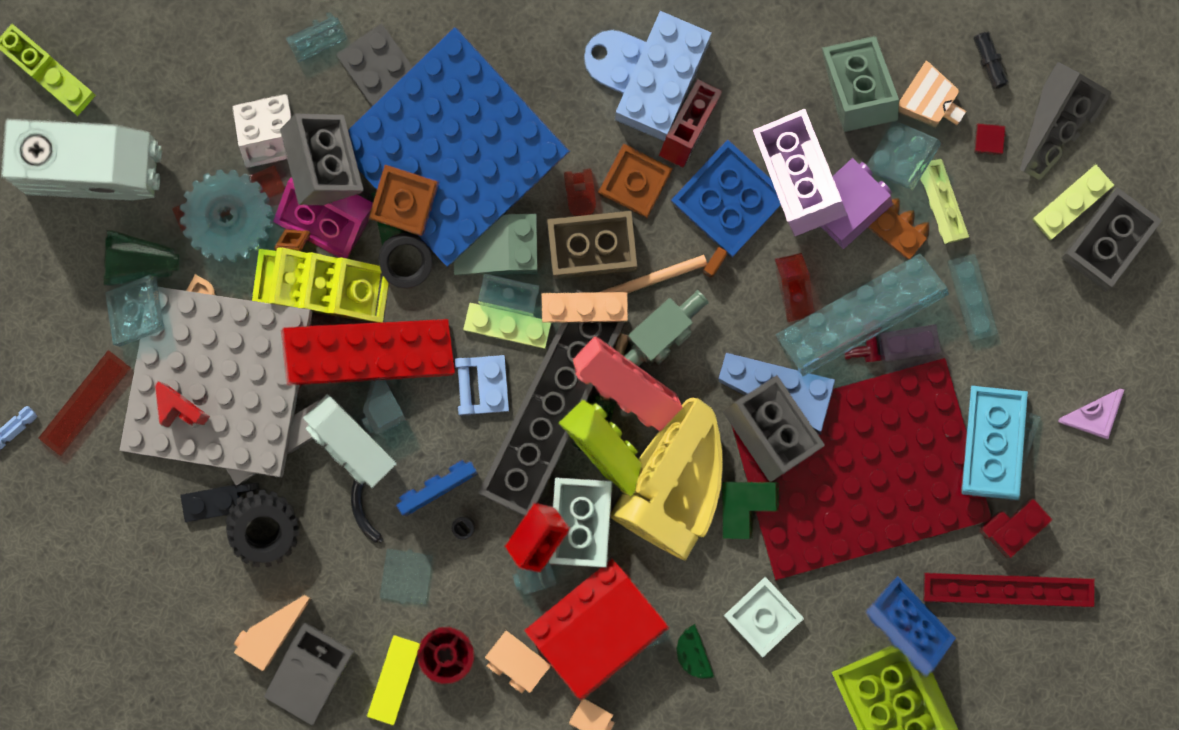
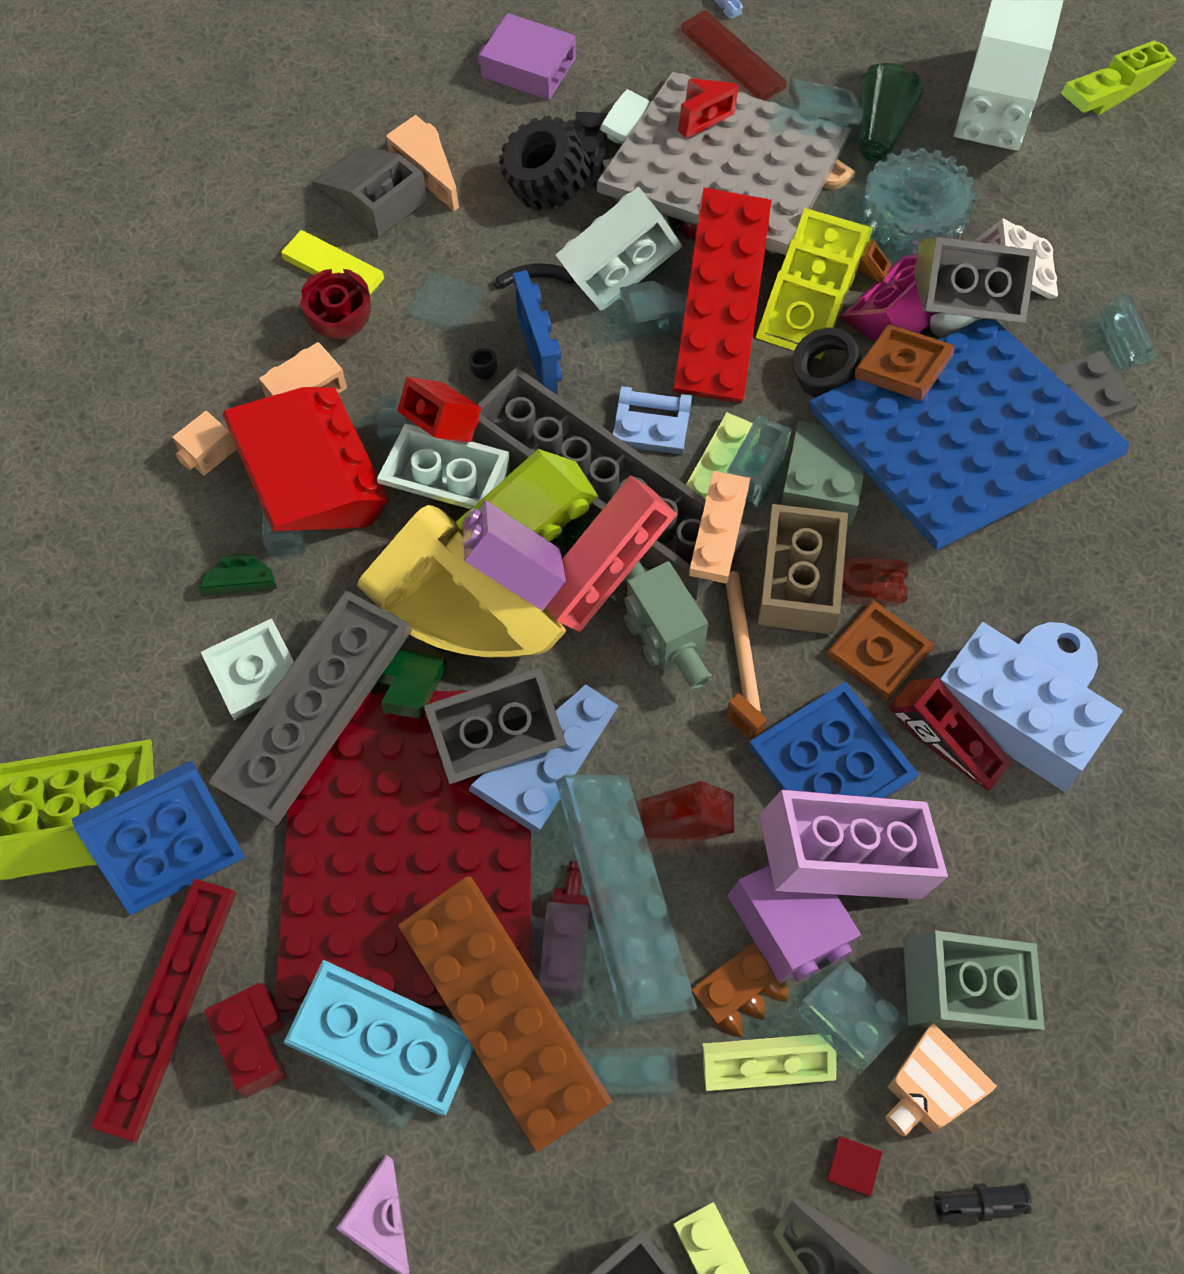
camera: 105 degrees right, 20 degrees down
(133, 581) = (527, 56): none -> medium lavender brick
(184, 475) = (624, 116): none -> light aqua slope
(651, 445) = (512, 555): none -> medium lavender brick
(787, 559) = (310, 707): none -> dark grey plate
(960, 371) = (504, 1014): none -> dark orange plate

